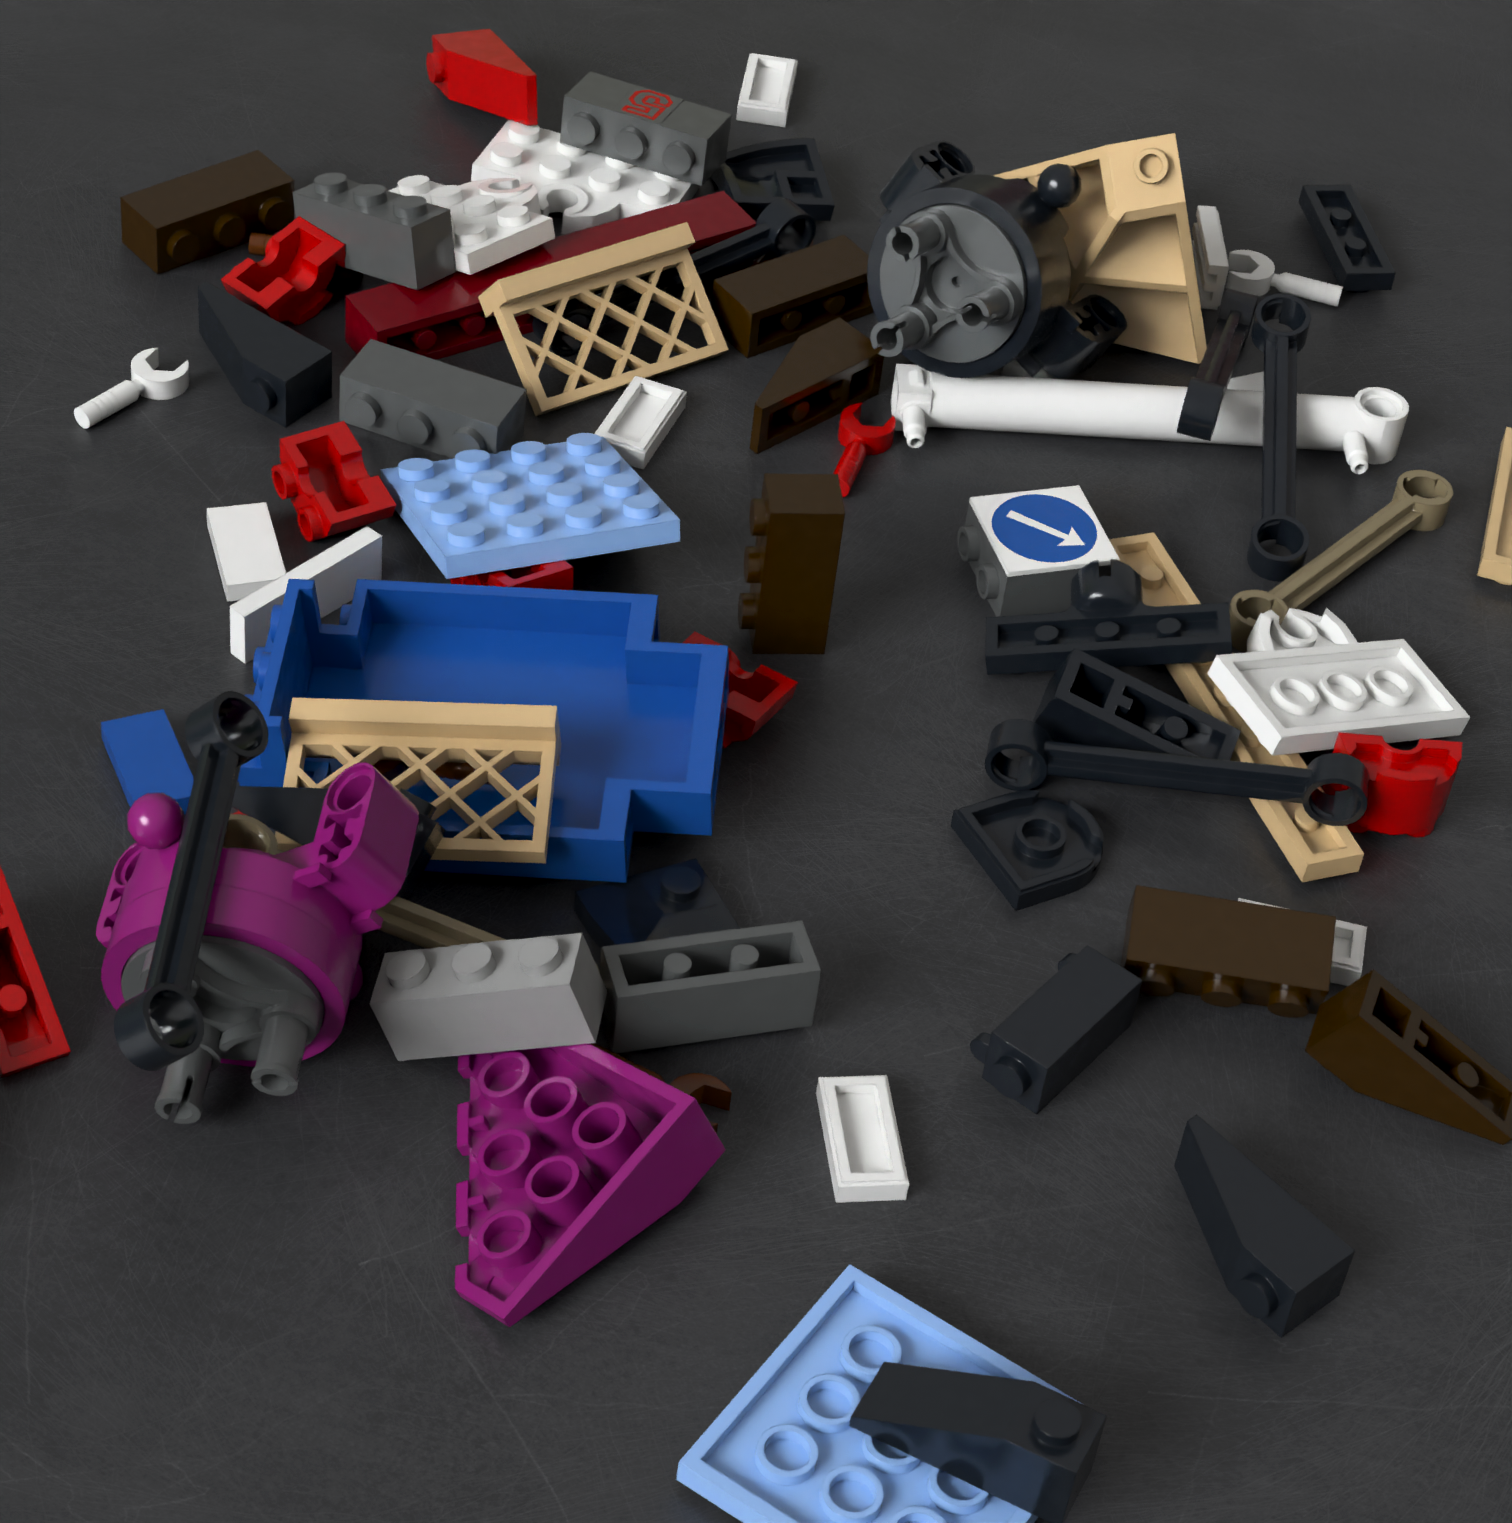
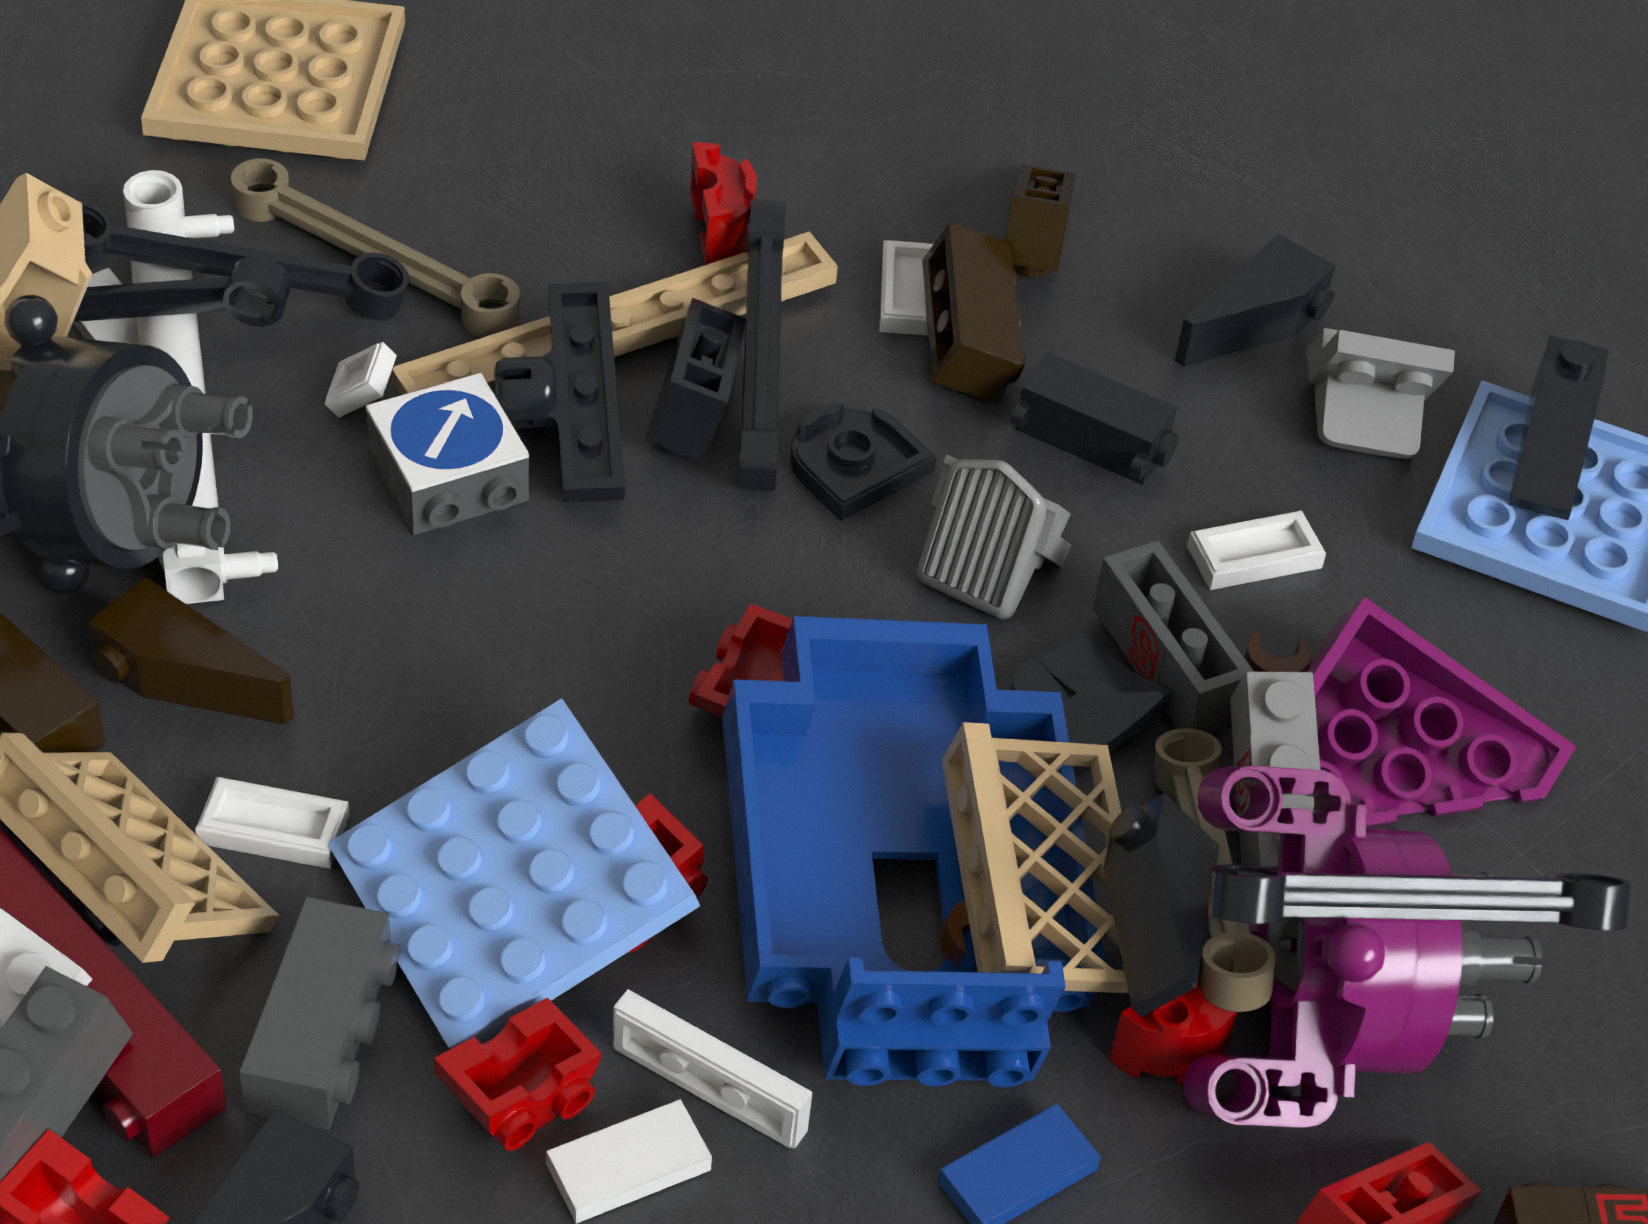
camera: 100 degrees left, 5 degrees up
(792, 563) = (603, 598): dark brown brick -> none
(858, 443) = (258, 620): red piece -> none
(886, 882) = (989, 535): none -> light grey piece
(1094, 1286) = (1373, 390): none -> light grey piece
(1144, 518) = (360, 379): none -> white tile
(1316, 680) = (604, 231): white plate -> none

